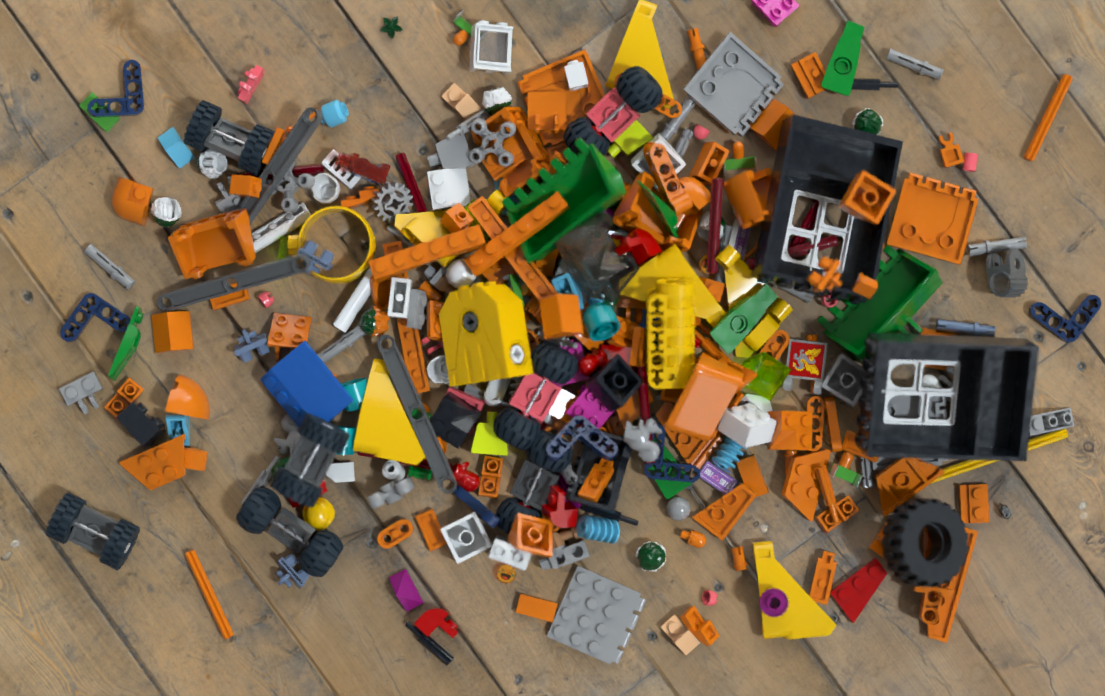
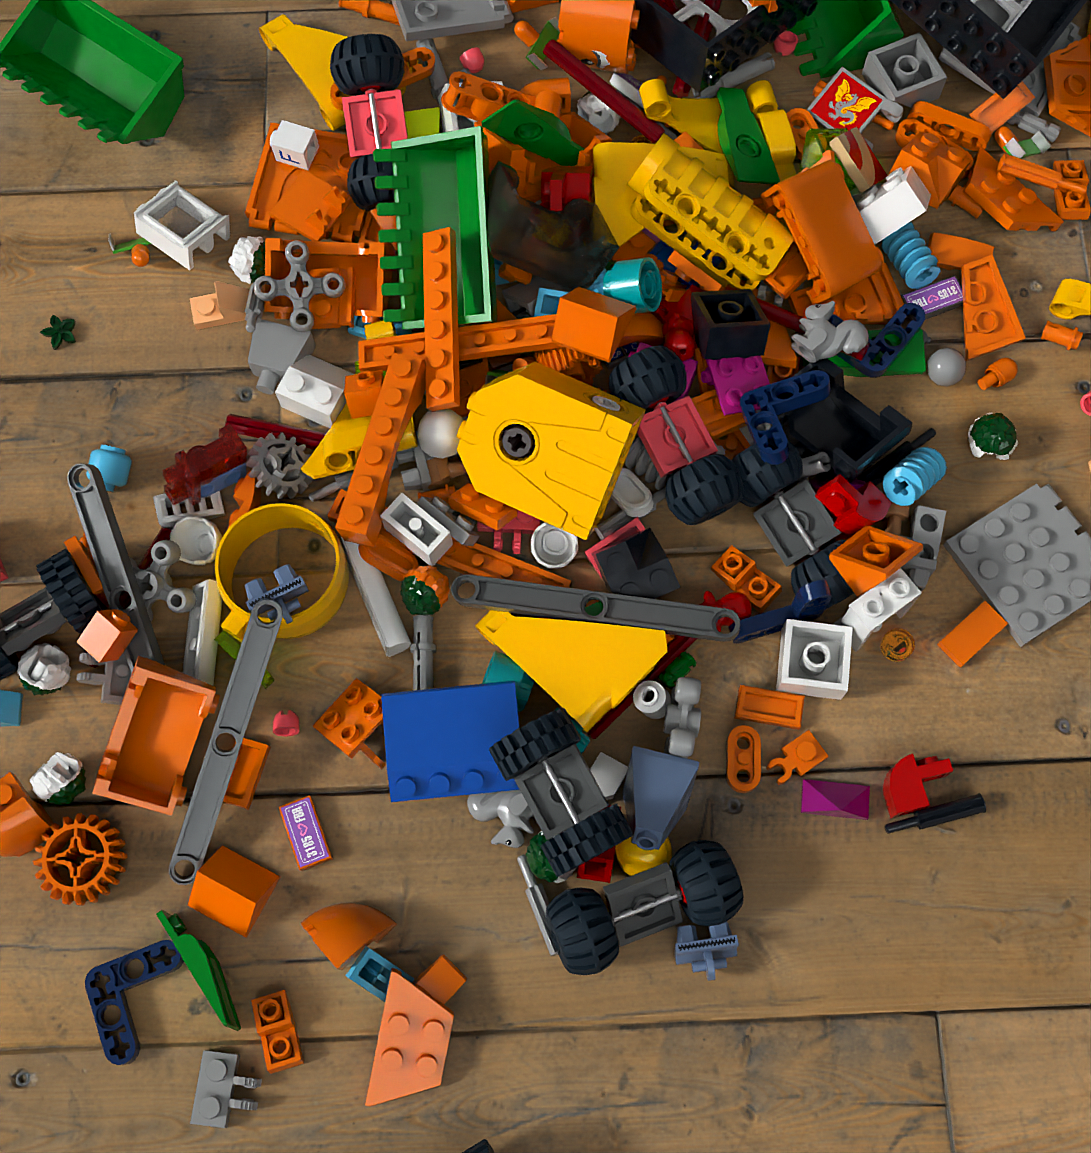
camera: 55 degrees left, 15 degrees down
(109, 266) = (85, 915): light grey pin -> none
(127, 236) = (77, 833): none -> orange gear
(140, 424) = (329, 1024): black slope -> none
(209, 594) = (659, 1101): orange axle -> none
(221, 346) = (305, 833): none -> medium lavender tile
(259, 342) = (332, 800): sand blue hips -> none
(343, 505) = (656, 794): none -> sand blue slope
(417, 560) = (800, 754): none -> orange plate
(485, 439) = (691, 547): neon yellow torso -> none
(561, 341) = (603, 379): light grey axle -> none
(596, 481) = (845, 432): orange hinge -> none
(709, 162) = (516, 62): orange brick -> none
(768, 389) = (858, 159): none -> tan tile

